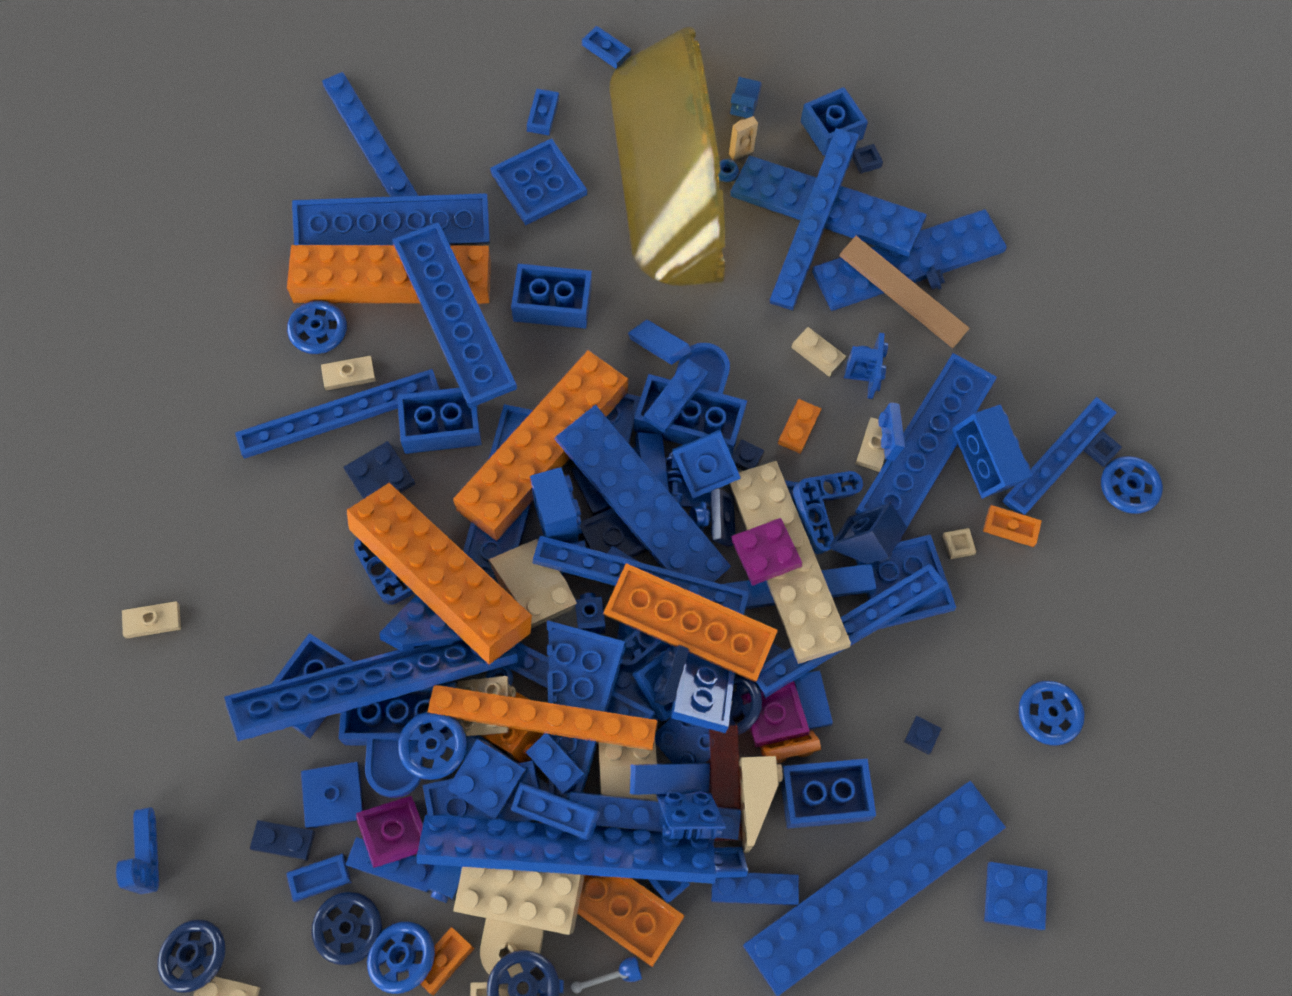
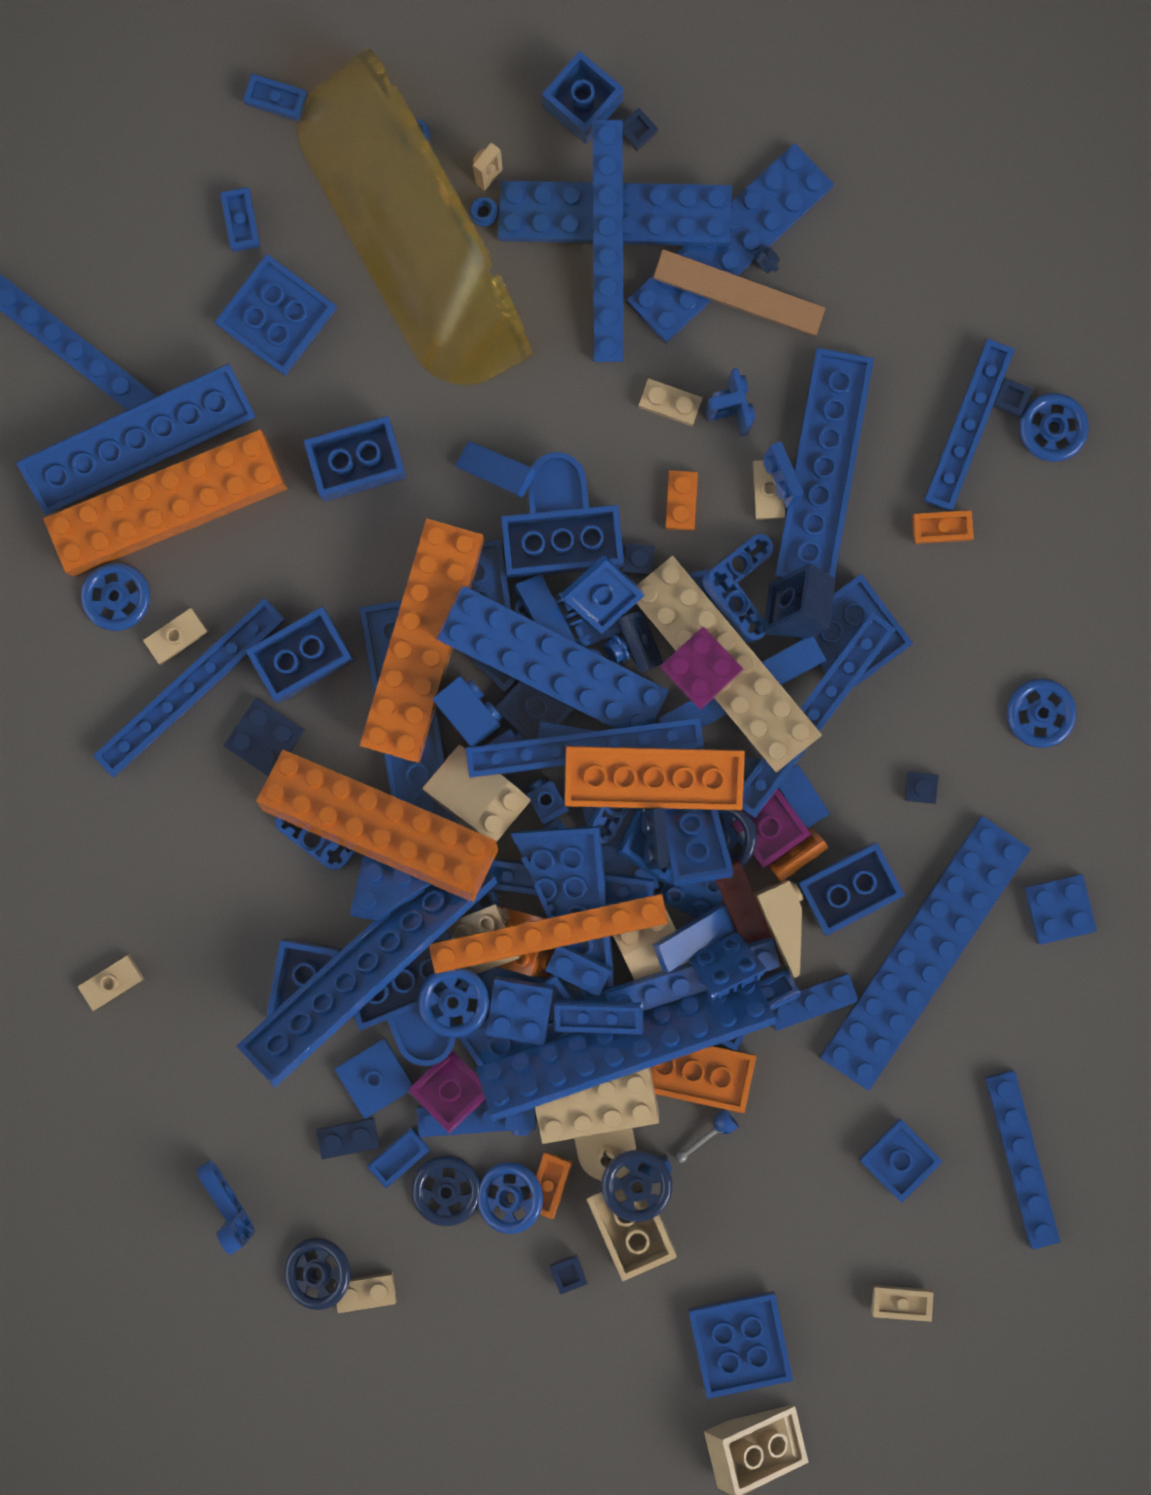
camera: 15 degrees left, 20 degrees up
(454, 315) = (262, 533): blue plate -> none
(676, 396) = (541, 531): blue plate -> none
(745, 97) = (468, 104): blue brick -> none
(959, 543) = (893, 567): tan tile -> none
(991, 451) = (897, 458): blue brick -> none

